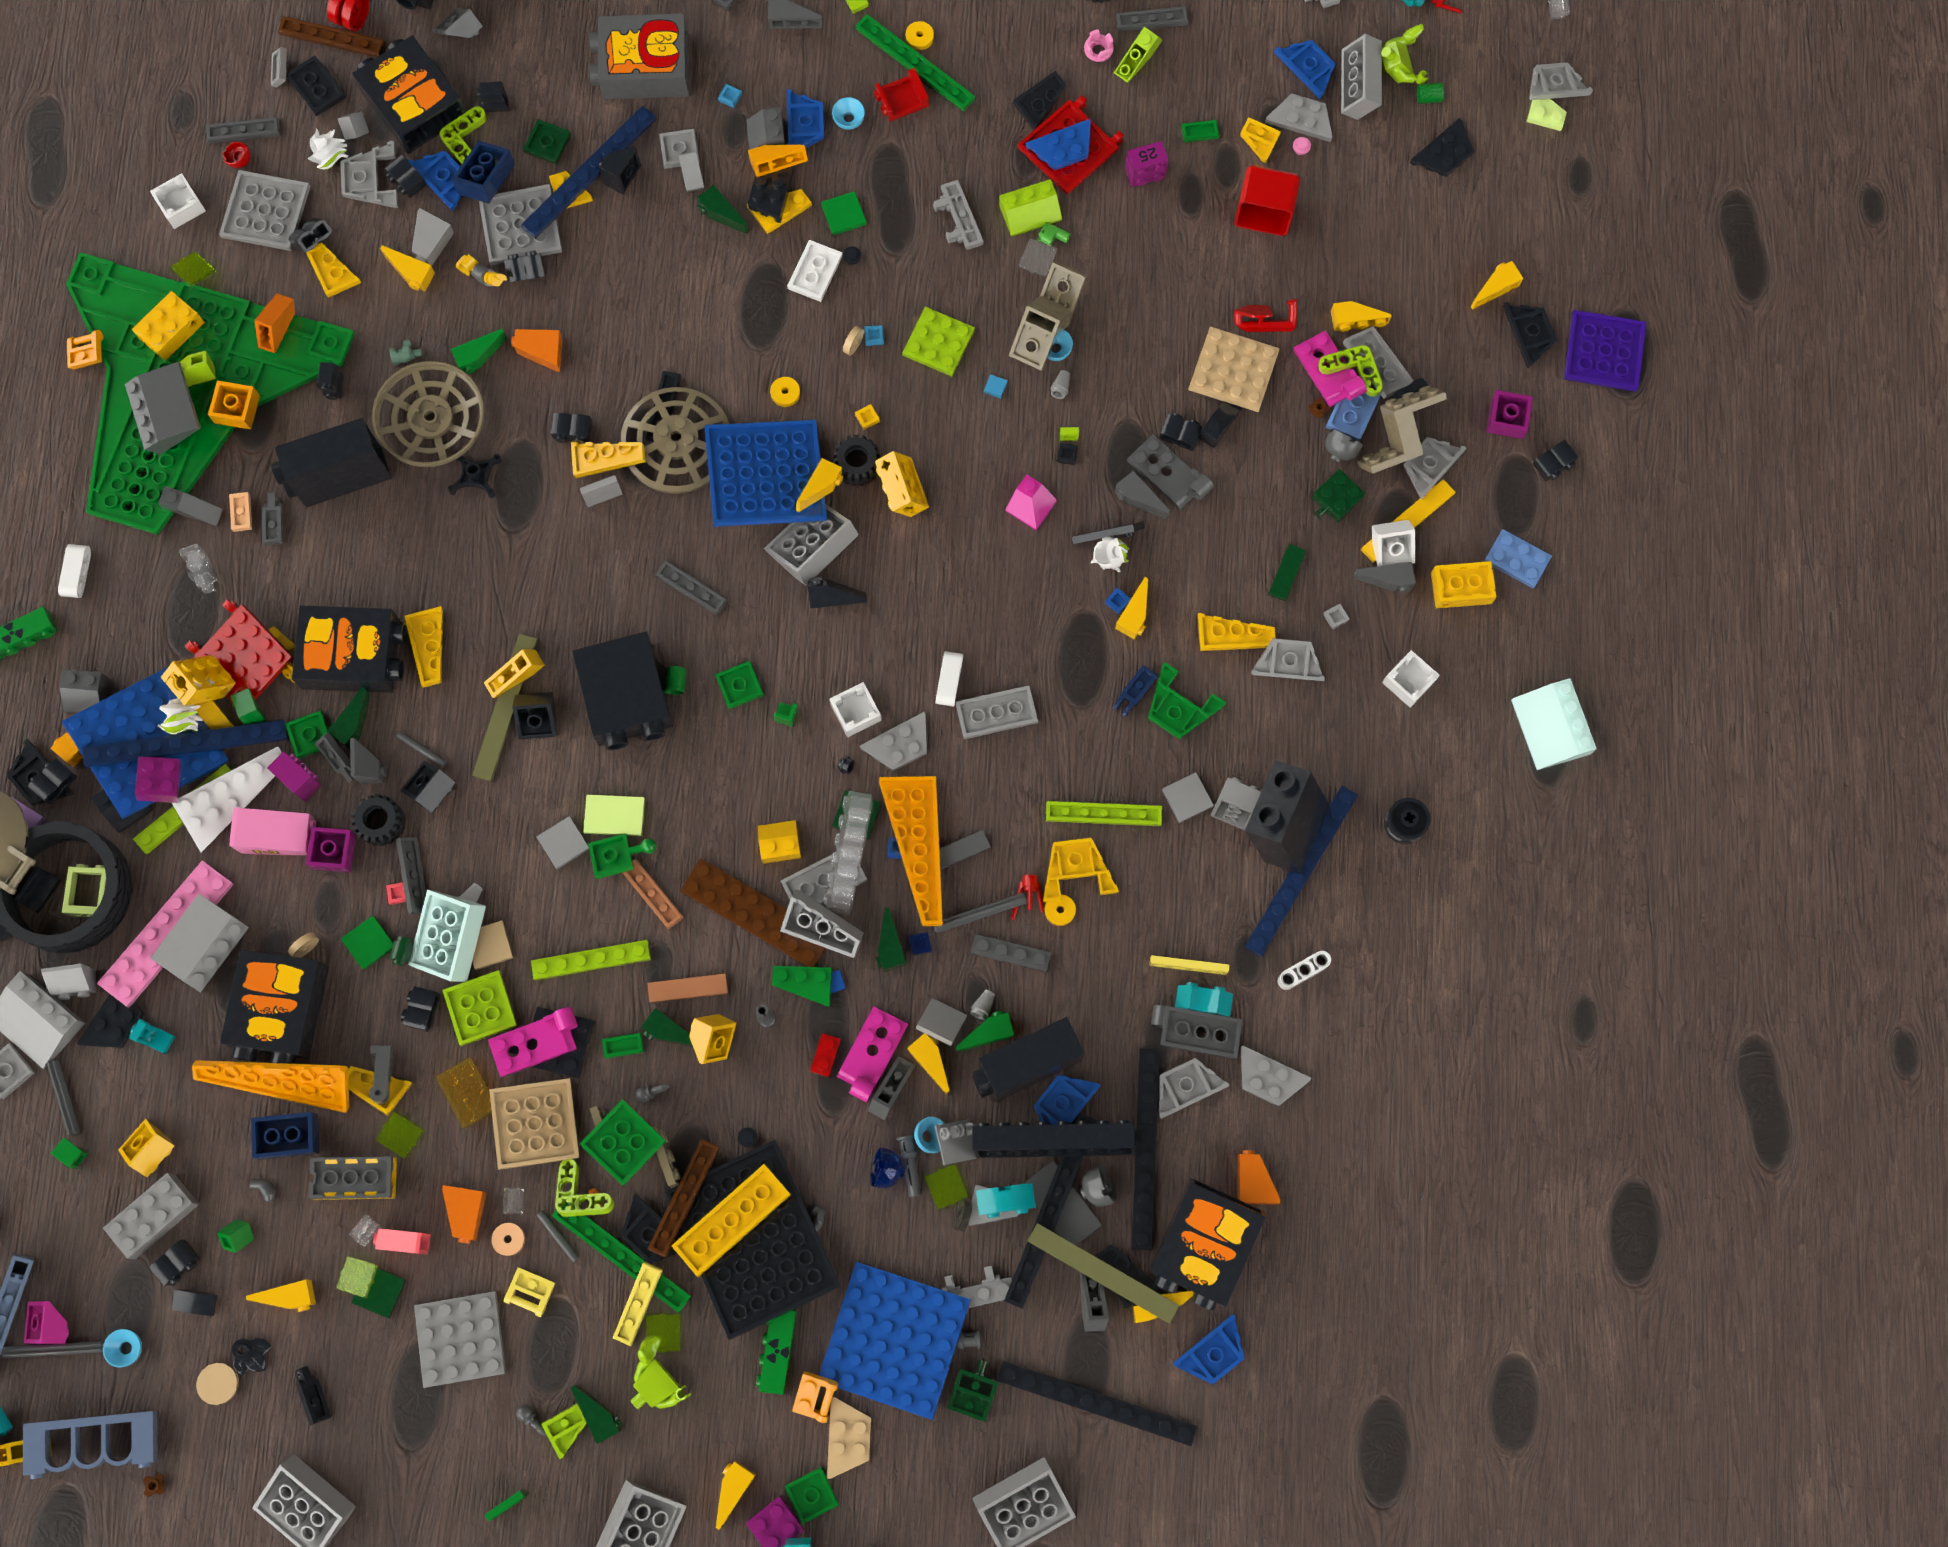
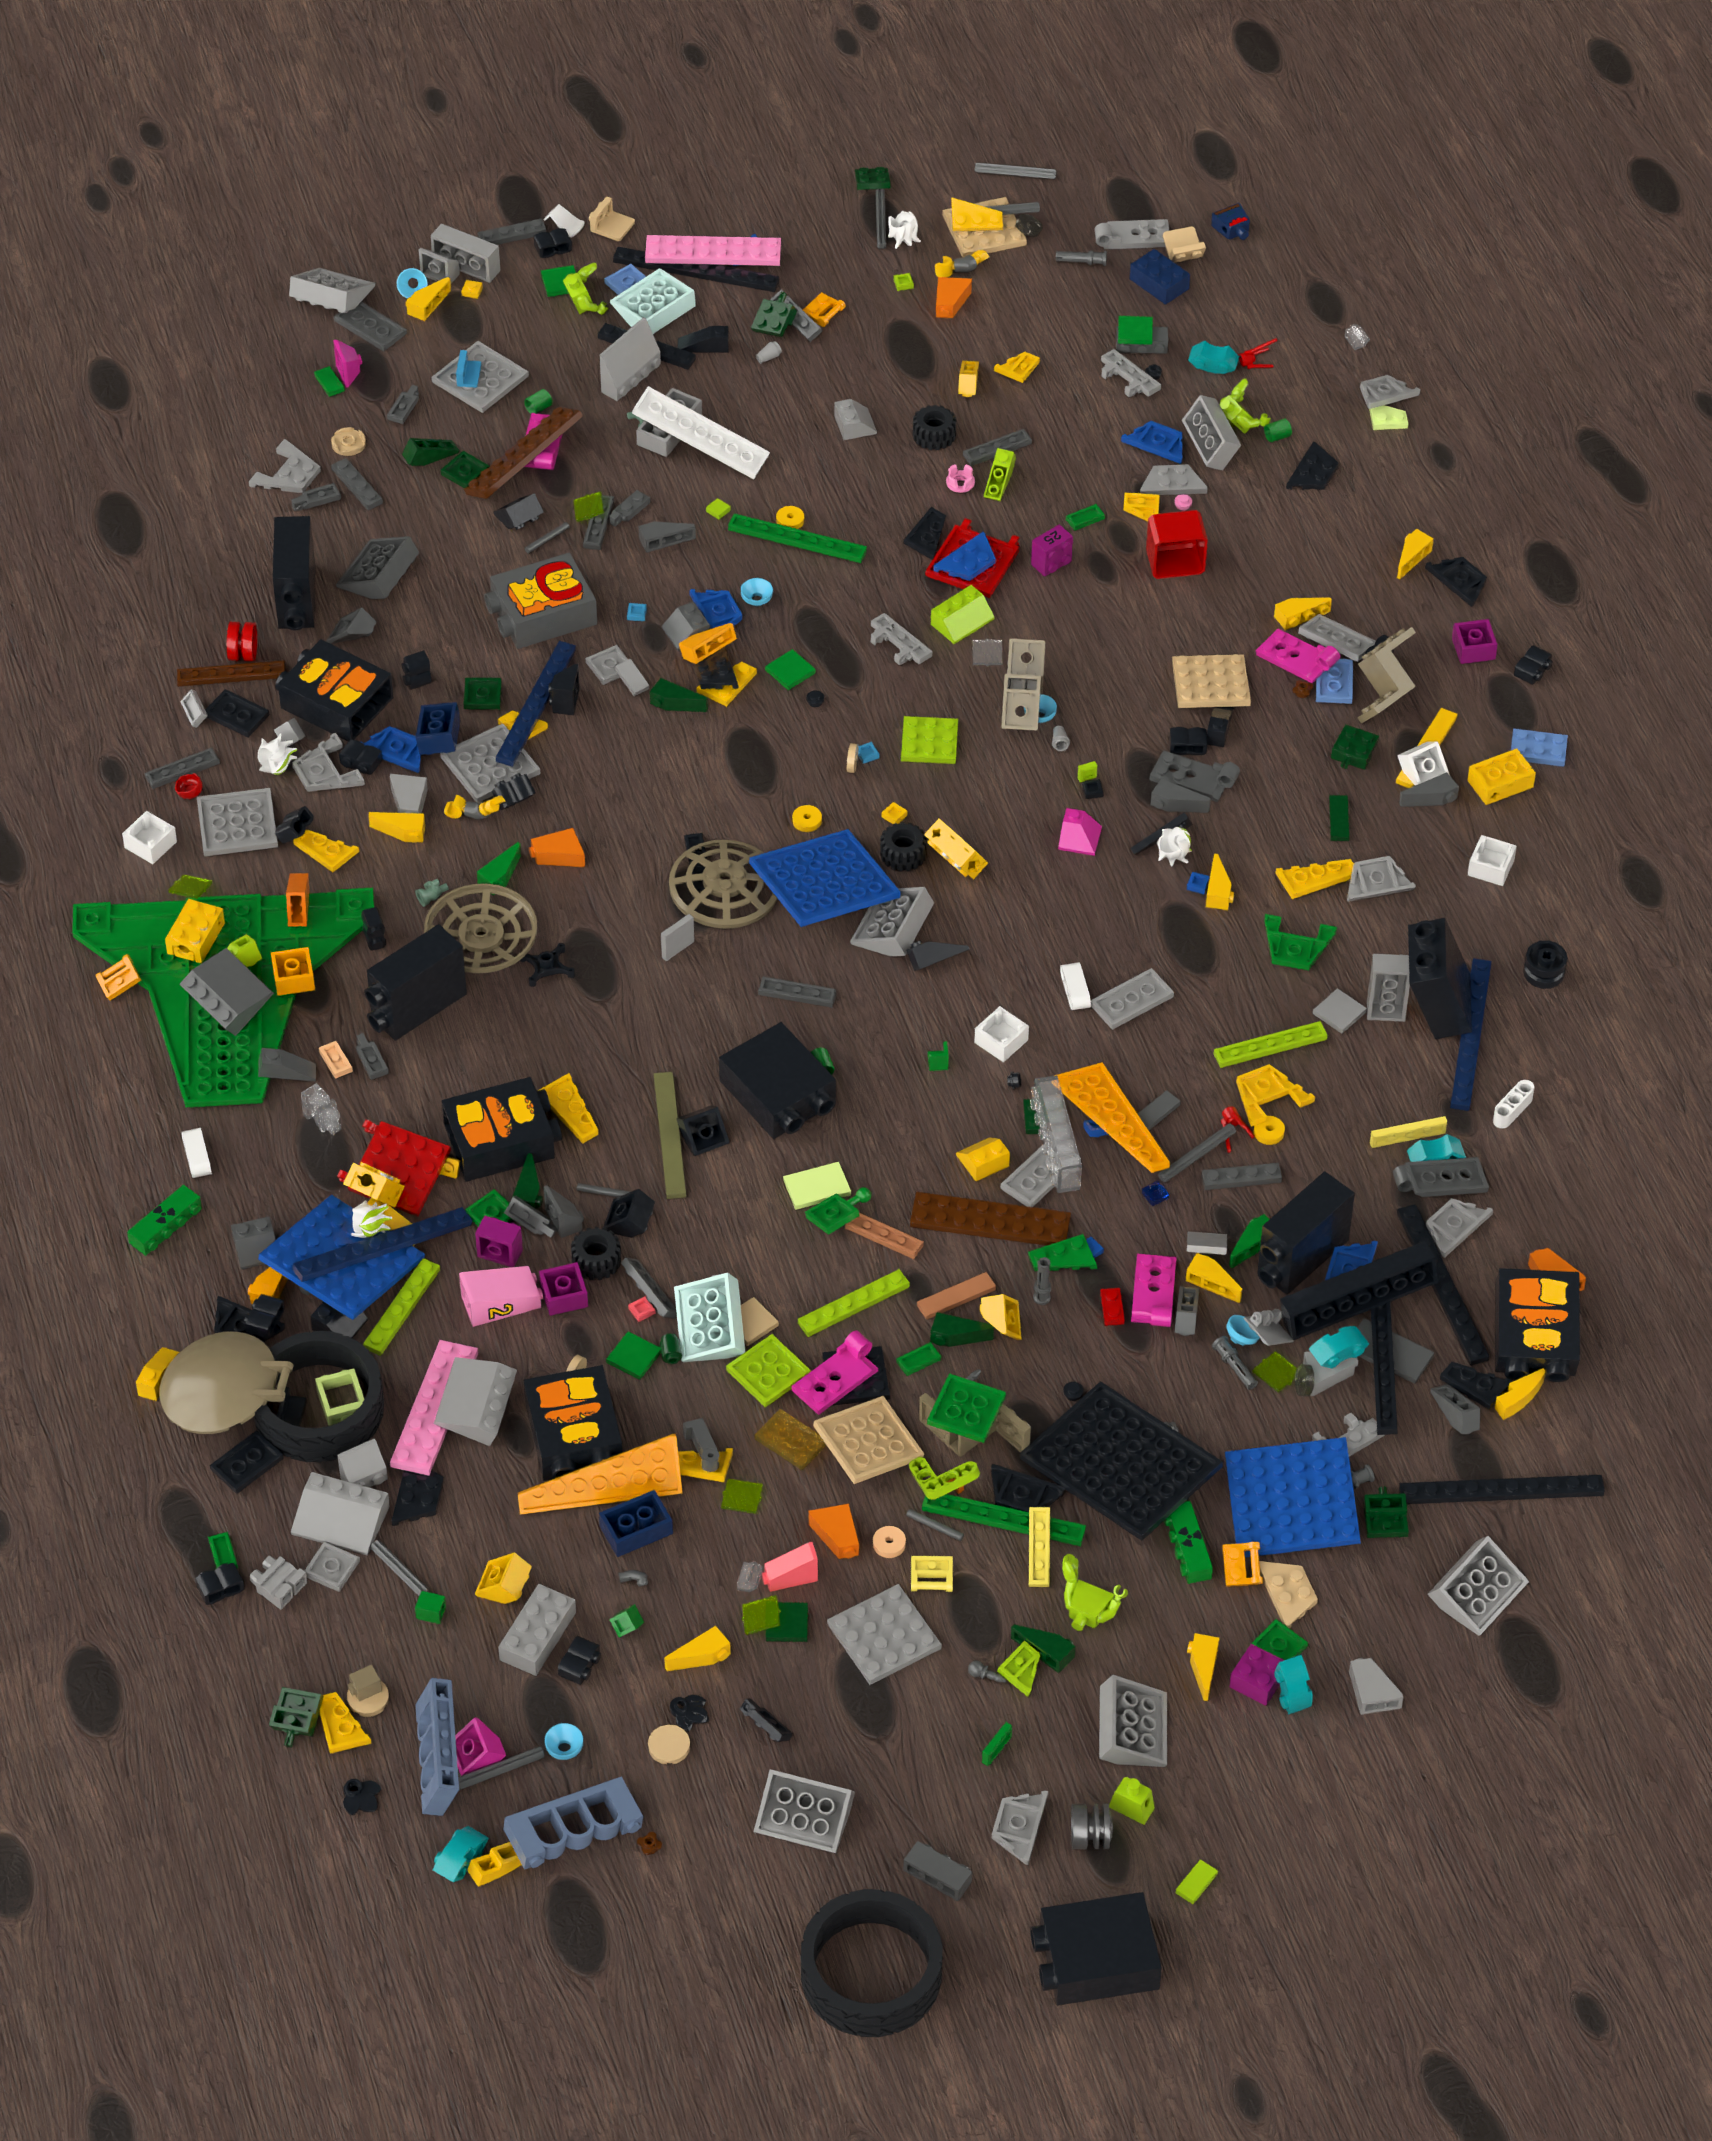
camera: 20 degrees left, 25 degrees down
(151, 1036) = (459, 1491): teal bracket -> none
(158, 779) = (376, 1272): magenta brick -> none
(194, 1302) = (614, 1684): black slope -> none
(211, 806) = (434, 1286): white wing -> none
(247, 707) = (425, 1202): green slope -> none
(353, 1178) = (718, 1535): dark grey piece -> none
(420, 1008) = (713, 1388): black brick -> none
(456, 138) = (394, 712): lime beam -> none
(513, 1201) = (884, 1514): clear piece -> none
(514, 672) = (667, 1099): yellow slope -> none
(563, 842) = (779, 1221): light grey tile -> none
(571, 427) = (621, 901): black brick -> none
(598, 458) = (660, 916): yellow wing -> none
(665, 1327) = (1085, 1570): clear neon green piece -> none
(683, 1198) = (1040, 1450): reddish brown tile -> none
(731, 1220) = (1094, 1447): yellow plate -> none
(739, 685) = (882, 1051): green tile -> none
(815, 270) = (787, 718): white plate -> none
(820, 926) = (1058, 1197): light grey wedge -> none
(821, 483) = (883, 867): yellow slope -> none
(887, 1169) = (1215, 1368): clear blue cylinder -> none
(889, 947) = (1130, 1205): dark green slope -> none
(900, 744) = (1055, 1051): light grey wing -> none
(902, 96) = (799, 566): red panel -> none
(983, 1004) = (1237, 1221): light grey cone -> none
(995, 386) = (1000, 758): dark azure tile -> none
(1050, 232) = (989, 629): bright green piece -> none
(1098, 1188) = (1416, 1321): dark grey cylinder -> none
(1103, 1273) = (1455, 1378): olive tile -> none
(1136, 689) = (1250, 943): dark blue hinge -> none
(1214, 1353) = (1587, 1415): blue wing -> none
(1262, 312) = (1218, 643): red piece -> none
(1269, 1078) = (1525, 1196): light grey wing -> none
(1336, 616) = (1401, 836): light grey plate -> none
(1342, 446) = (1338, 706): dark grey cylinder -> none
(1360, 362) = (1318, 637): lime beam -> none
(1432, 465) = (1425, 699): light grey wing -> none
(1554, 724) = (1637, 856): light aqua slope -> none
(1605, 350) = (1533, 573): dark purple plate -> none

